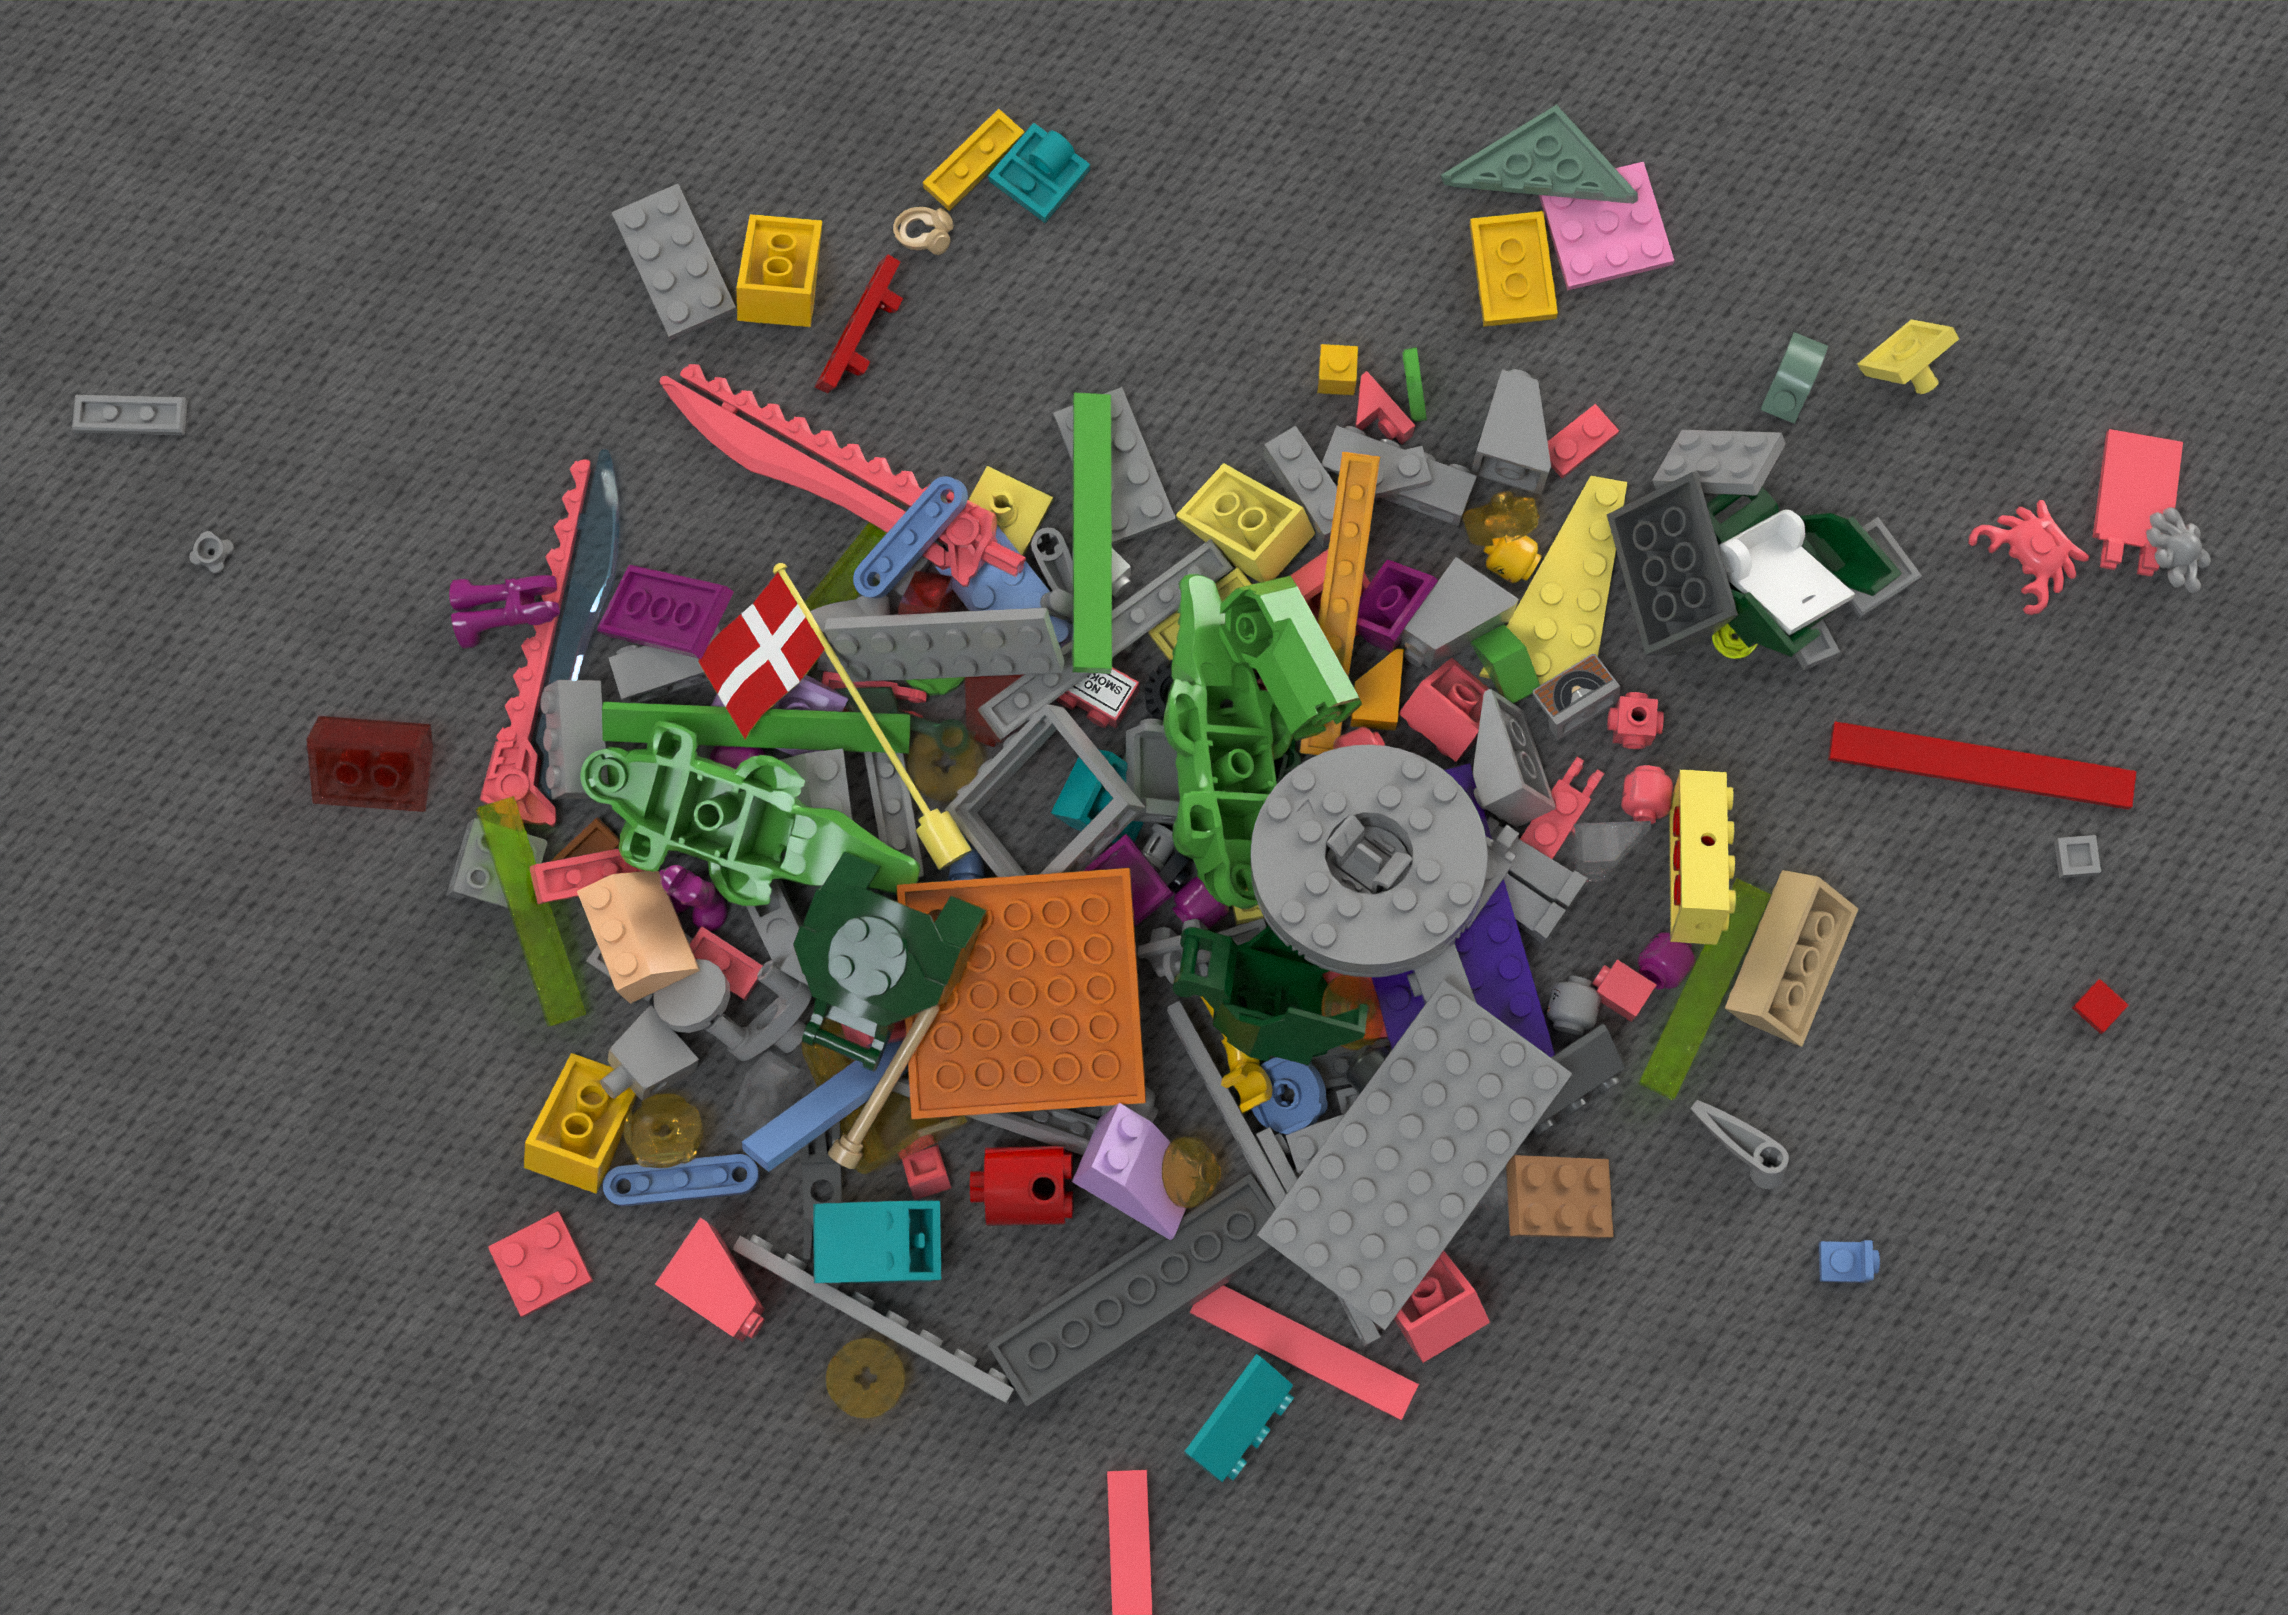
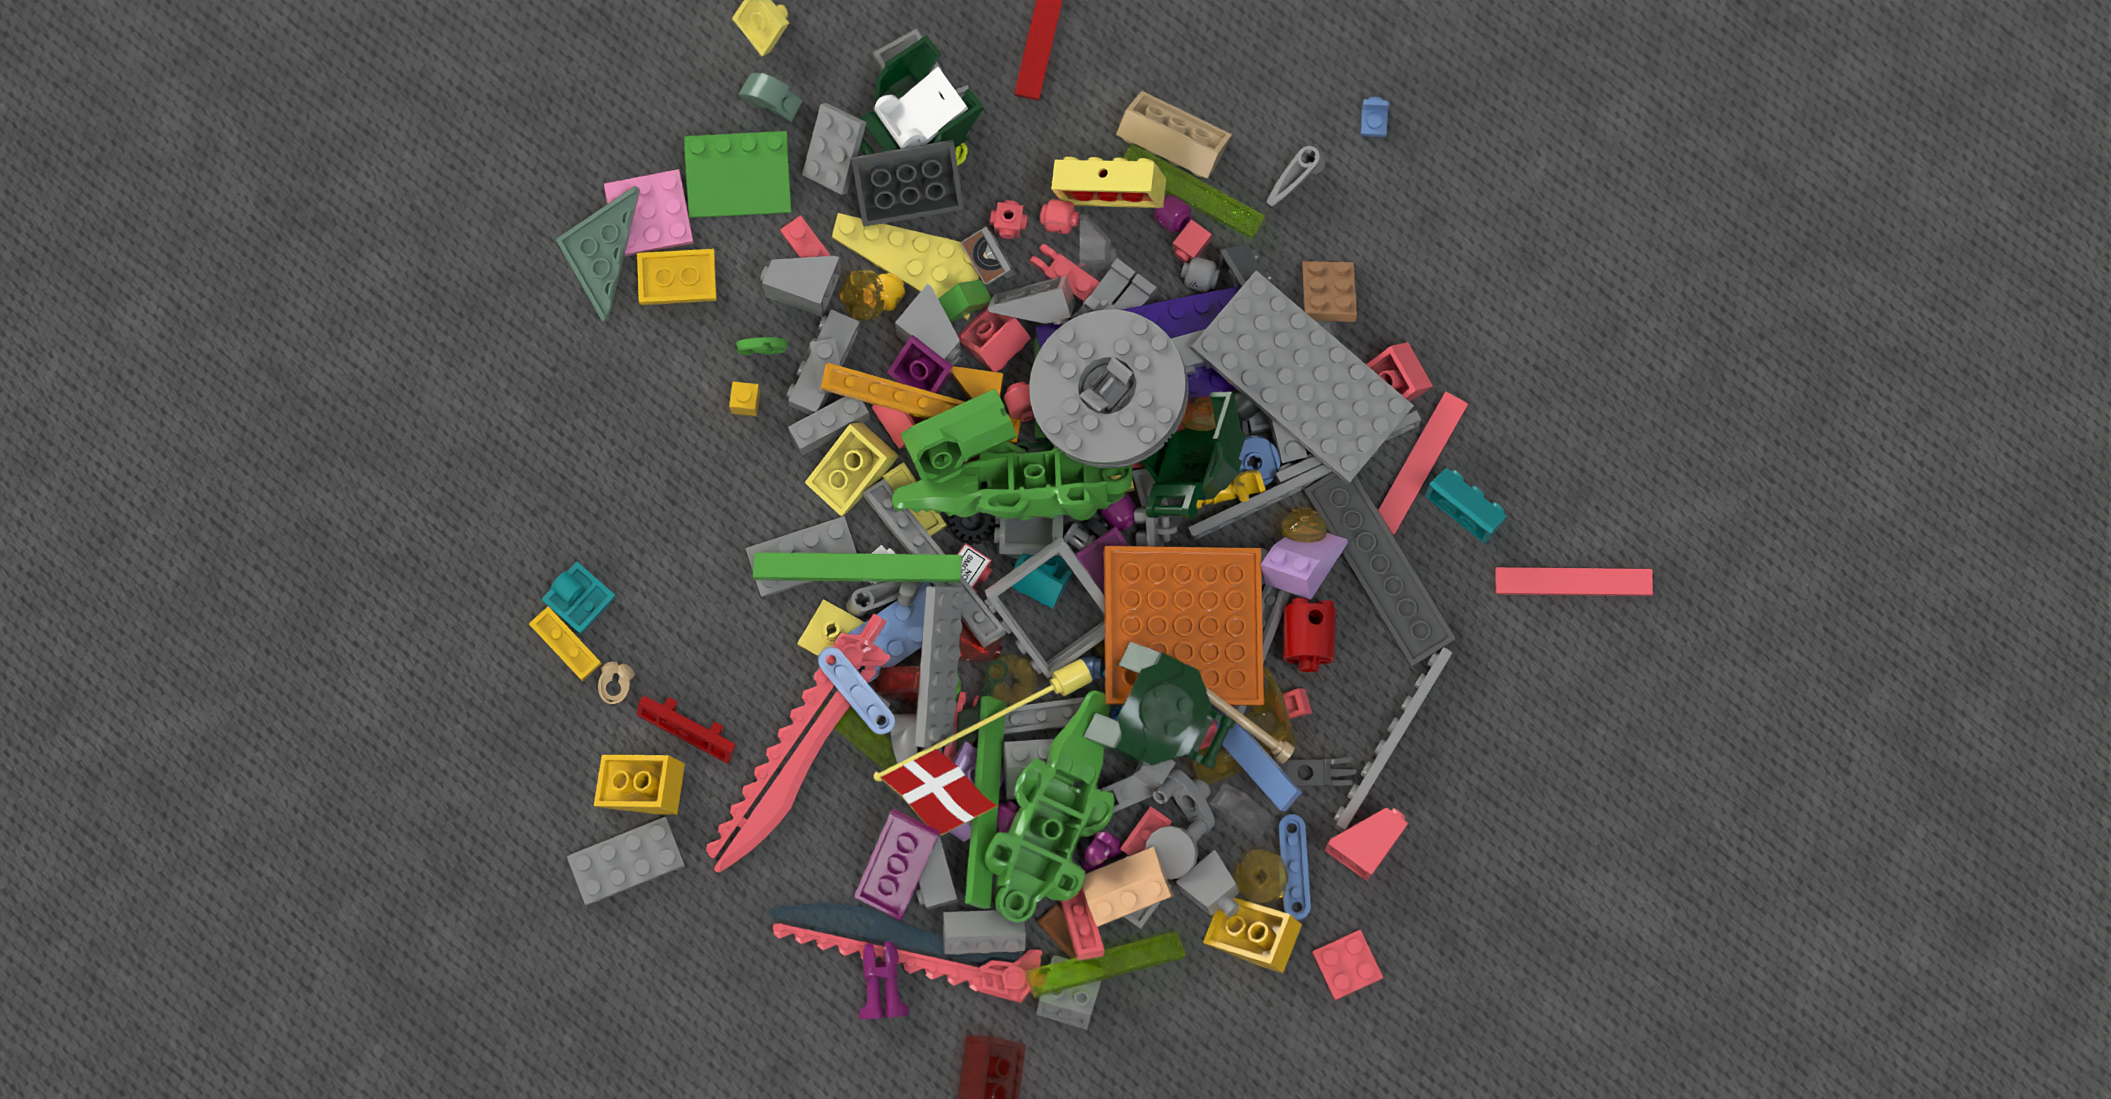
camera: 90 degrees left, 0 degrees up
(850, 1362) = (1442, 737): clear yellow plate -> none
(877, 1242) = (1344, 731): teal slope -> none
(1376, 403) = (769, 376): coral slope -> none
(1673, 340) = (738, 174): none -> bright green slope

